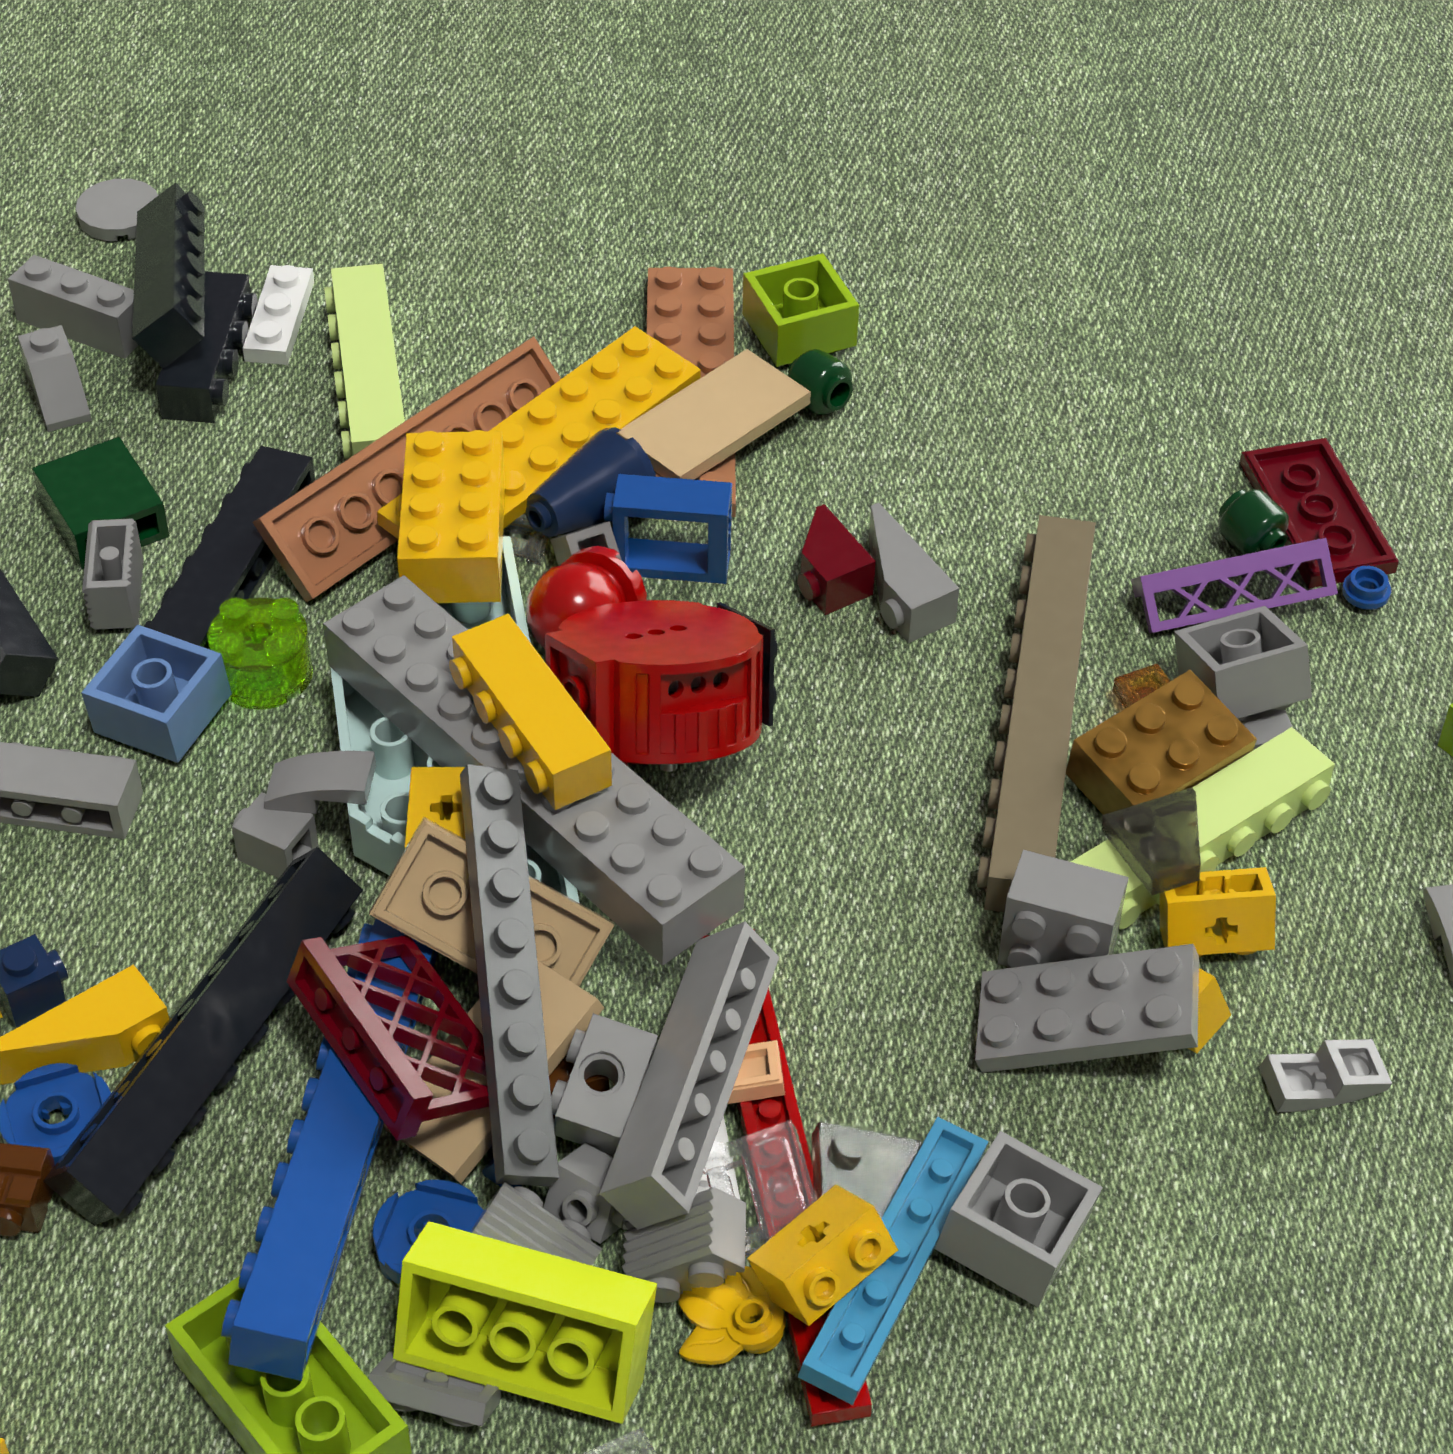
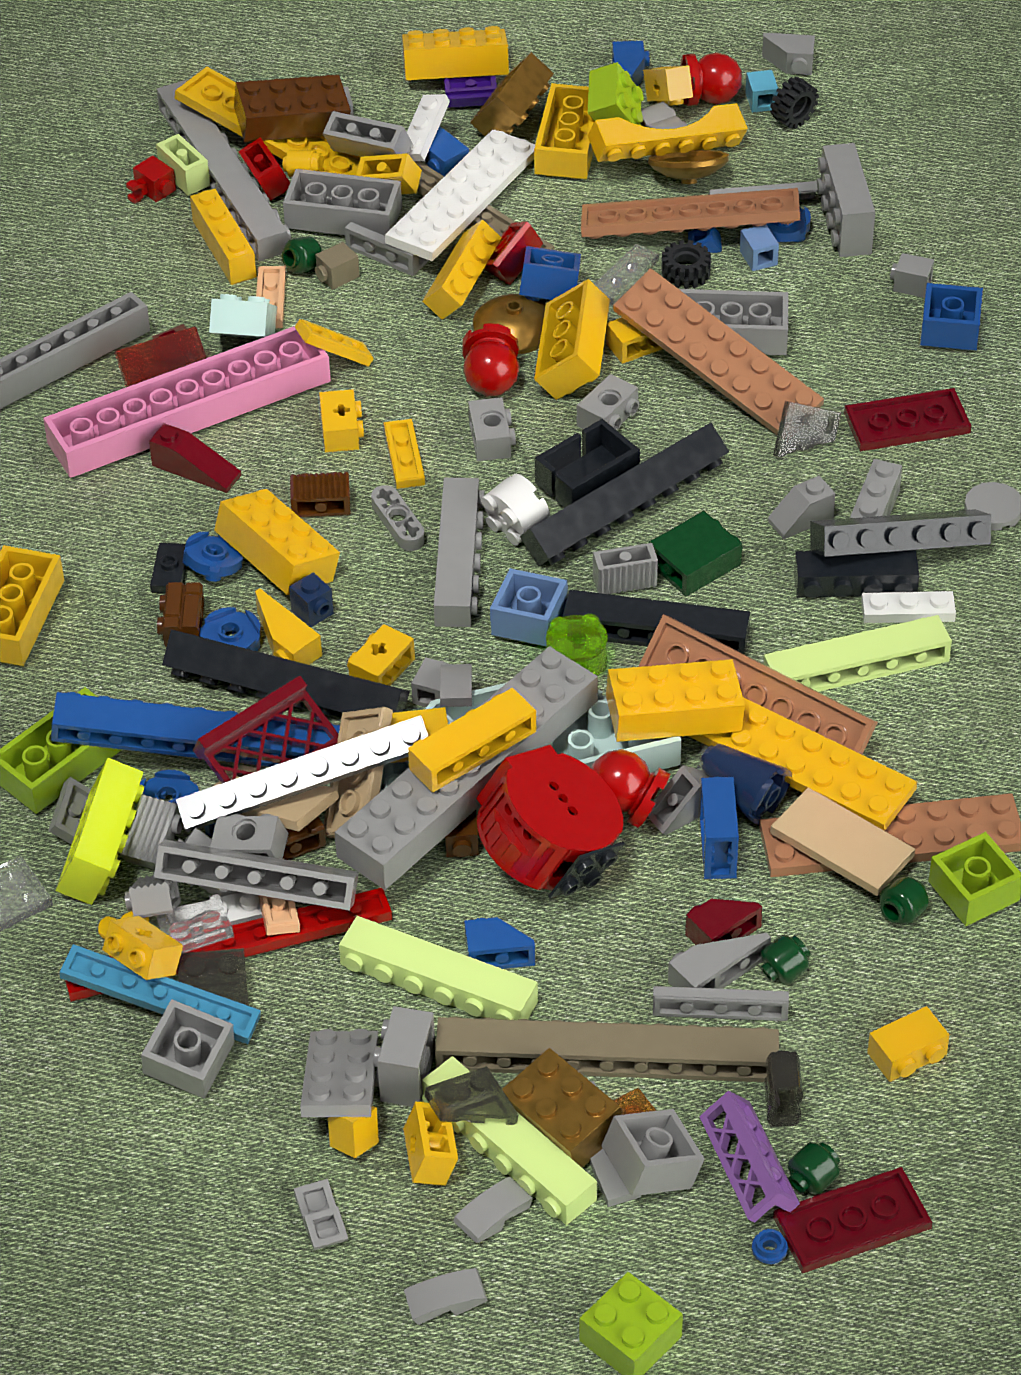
camera: 85 degrees right, 0 degrees up
(195, 898) = (382, 656): none -> yellow brick
(833, 813) = (498, 943): none -> blue slope
(878, 888) = (436, 972): none -> yellowish green brick
(905, 501) = (785, 959): none -> dark green head
(971, 582) = (720, 1003): none -> light grey tile
(1054, 414) = (908, 1044): none -> yellow brick
(1139, 523) = (783, 1088): none -> clear smoke brick
(1321, 865) = (490, 1209): none -> light grey slope

